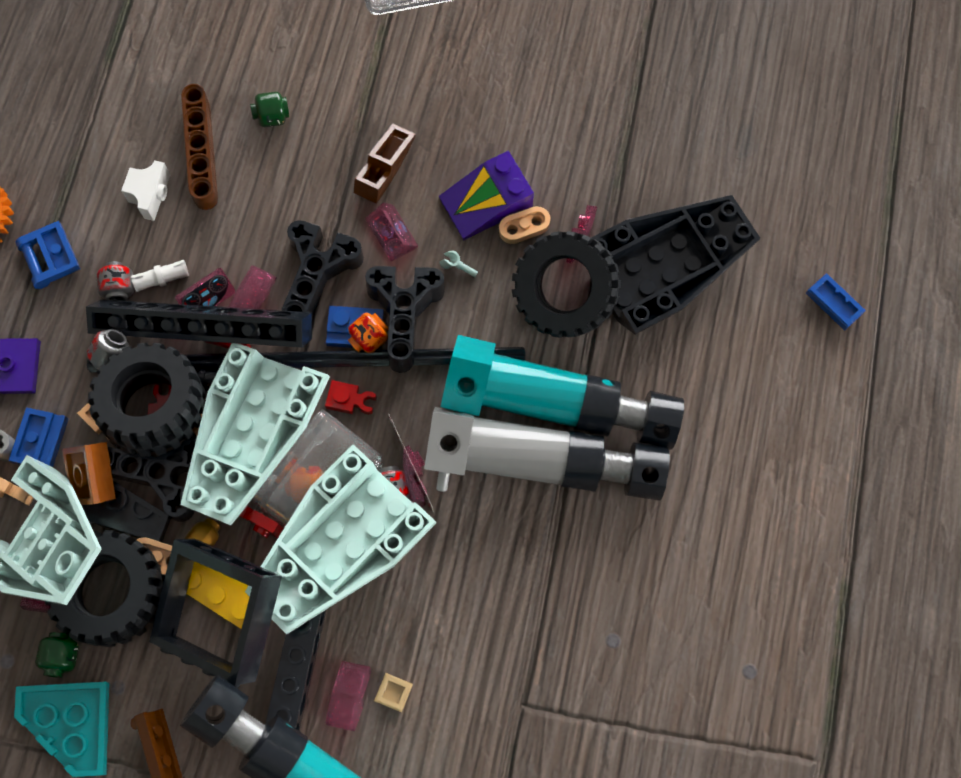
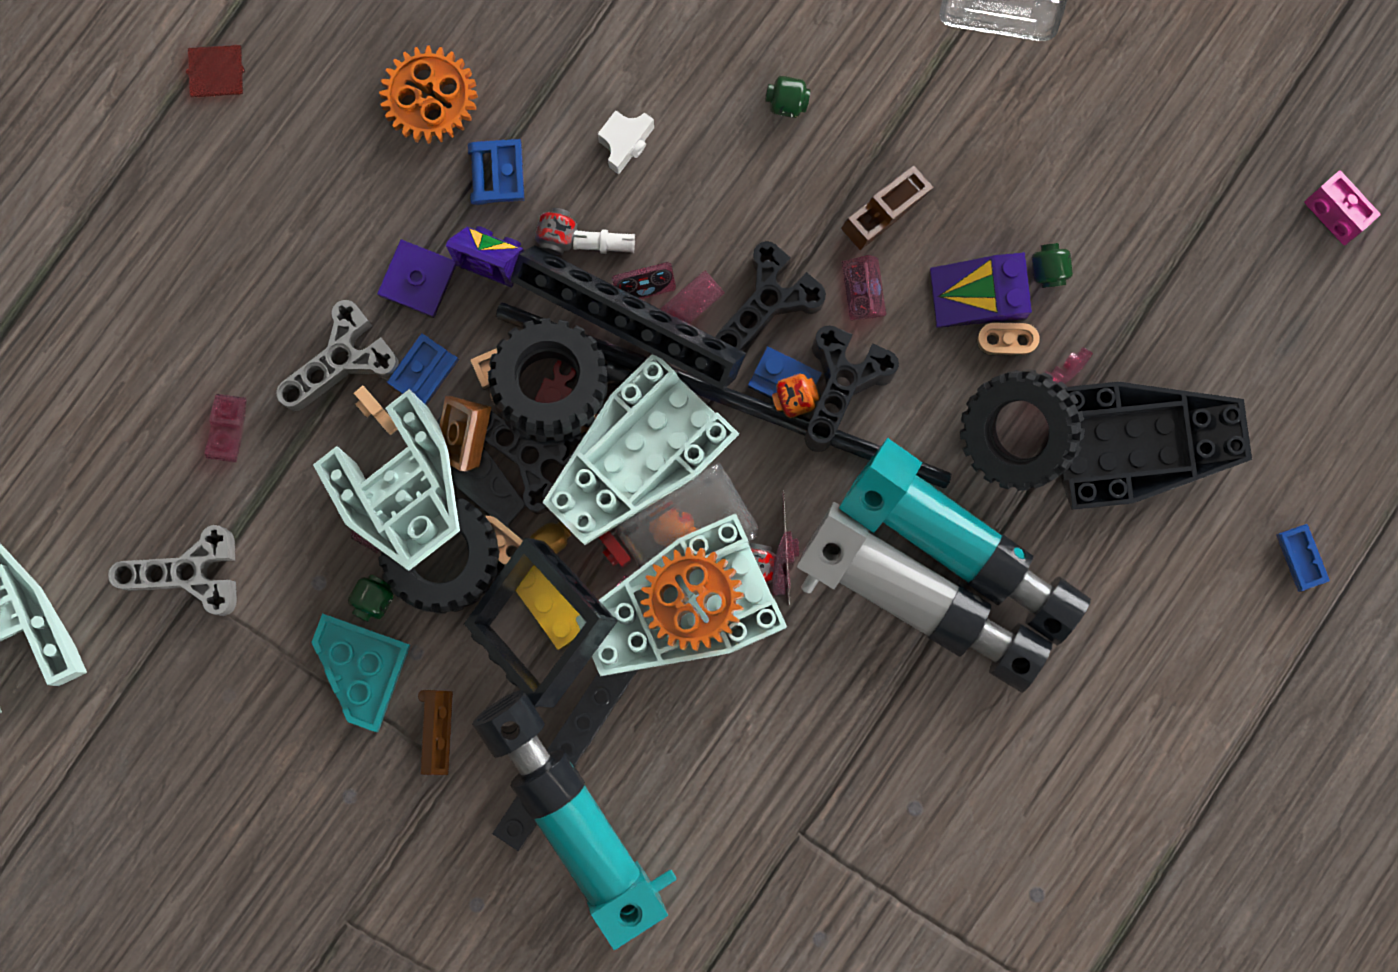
camera: 25 degrees right, 10 degrees up
(56, 322) = (484, 254): none -> dark purple slope
(105, 345) = (525, 306): flat silver head -> none
(201, 157) = (697, 97): reddish brown beam -> none
(327, 553) = (669, 615): none -> orange gear
(345, 397) = (746, 452): red plate -> none
(347, 696) = (634, 754): clear pink slope -> none
(393, 692) = (679, 769): tan tile -> none
(455, 262) = (918, 351): light aqua hand -> none
(535, 156) = (1052, 265): none -> dark green head
(738, 33) = (1342, 208): none -> dark pink bracket

